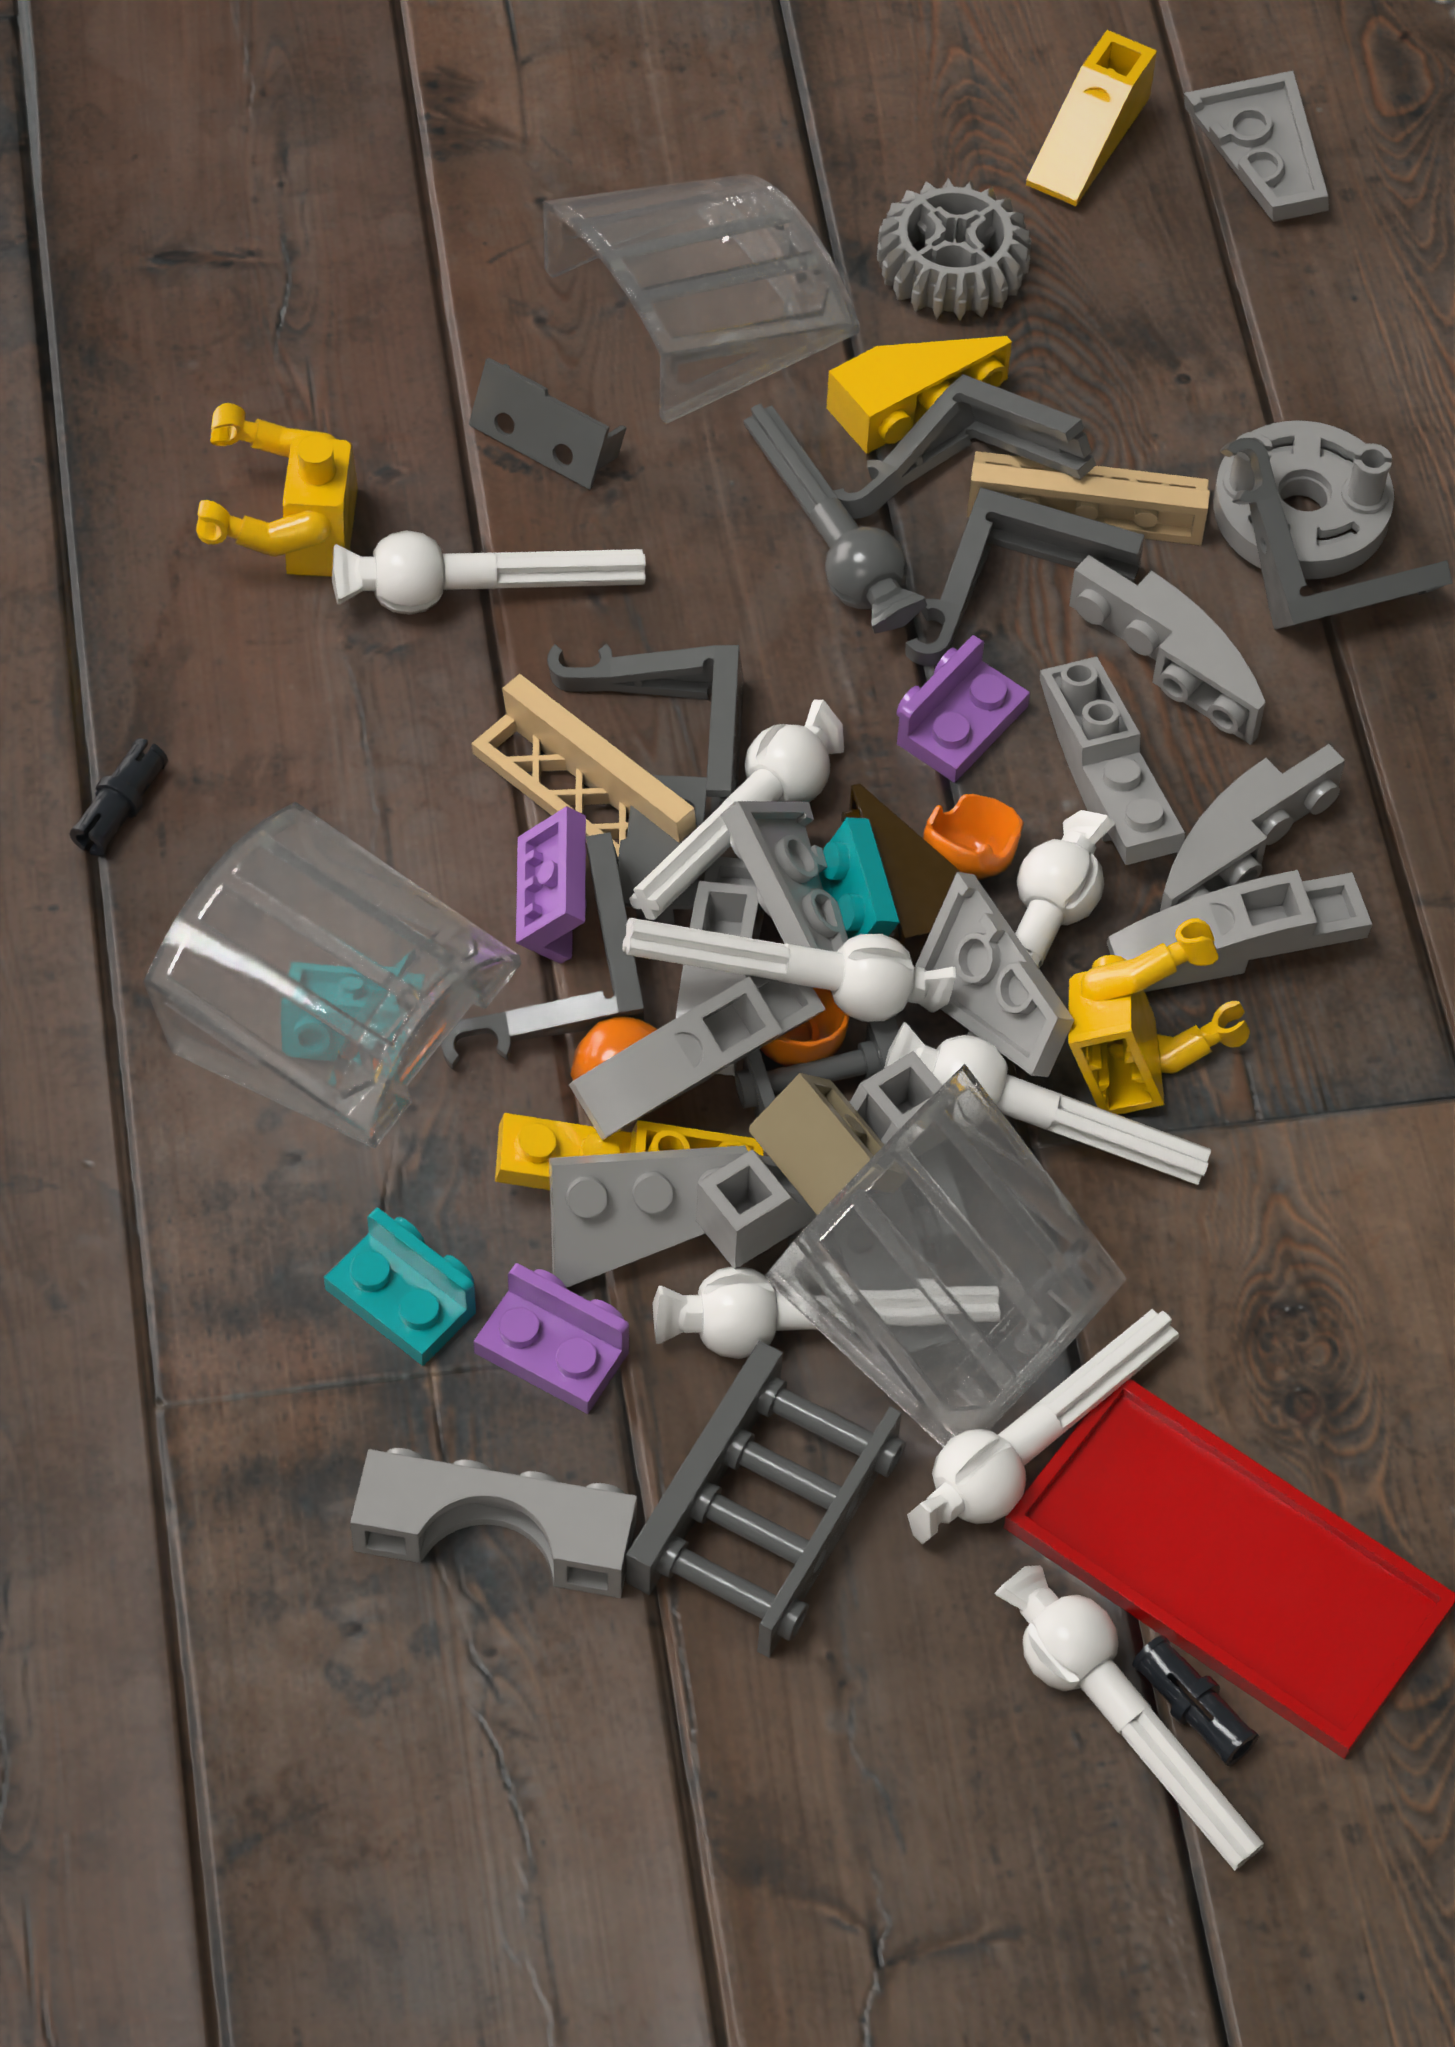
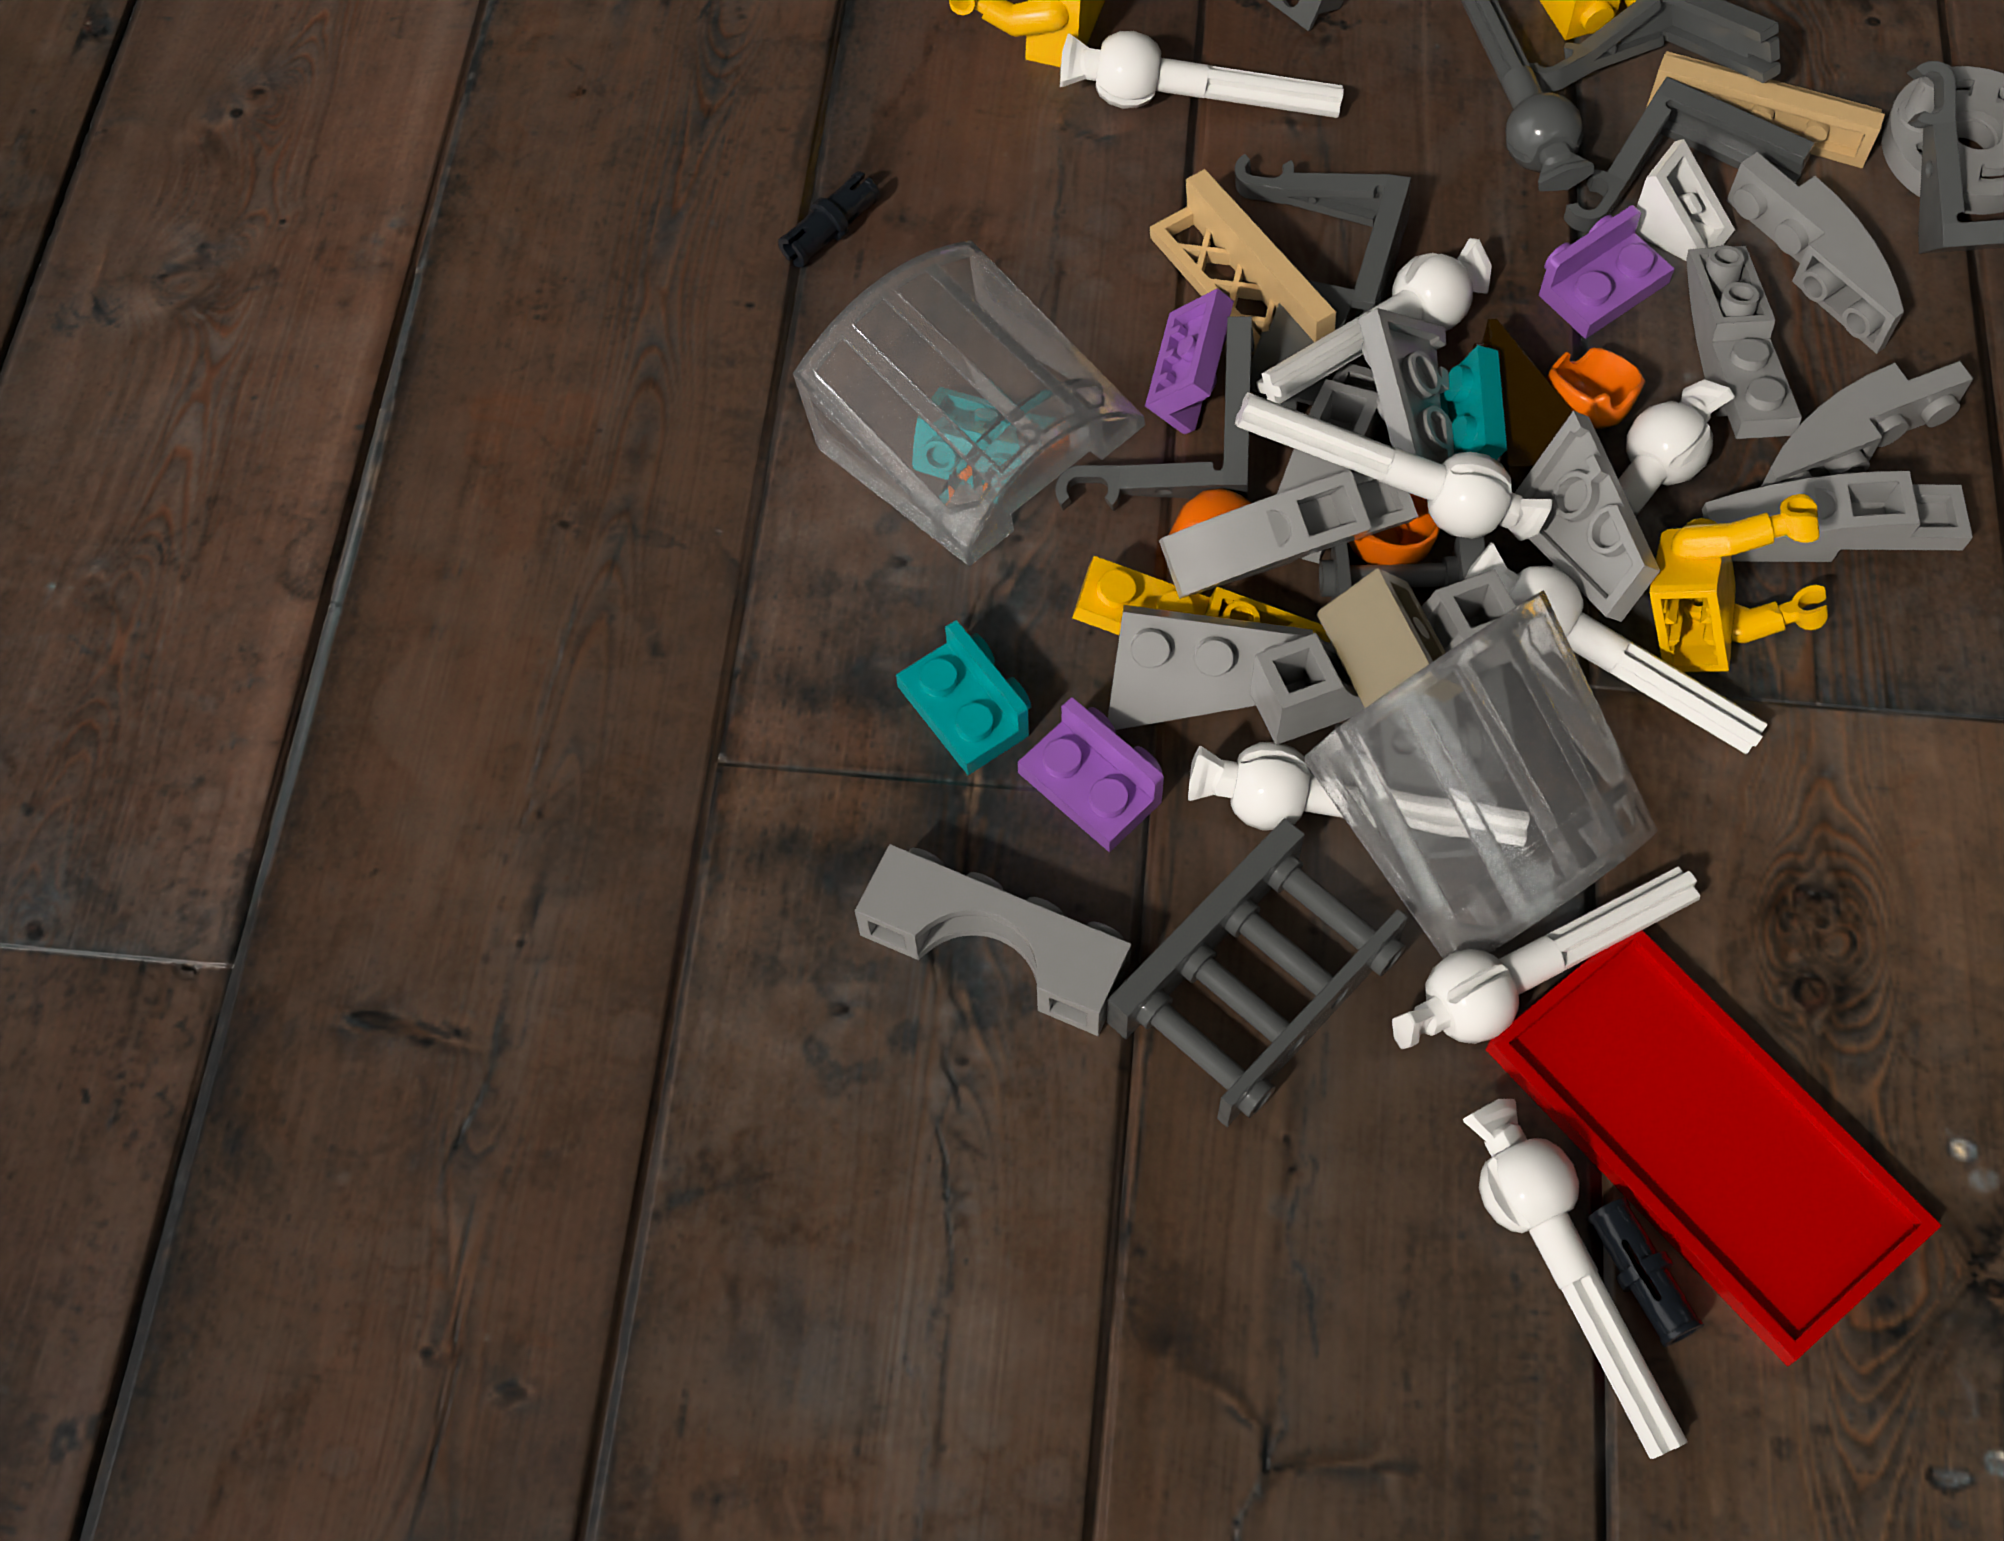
camera: 20 degrees right, 5 degrees up
(1024, 626) = (1680, 206): none -> white slope

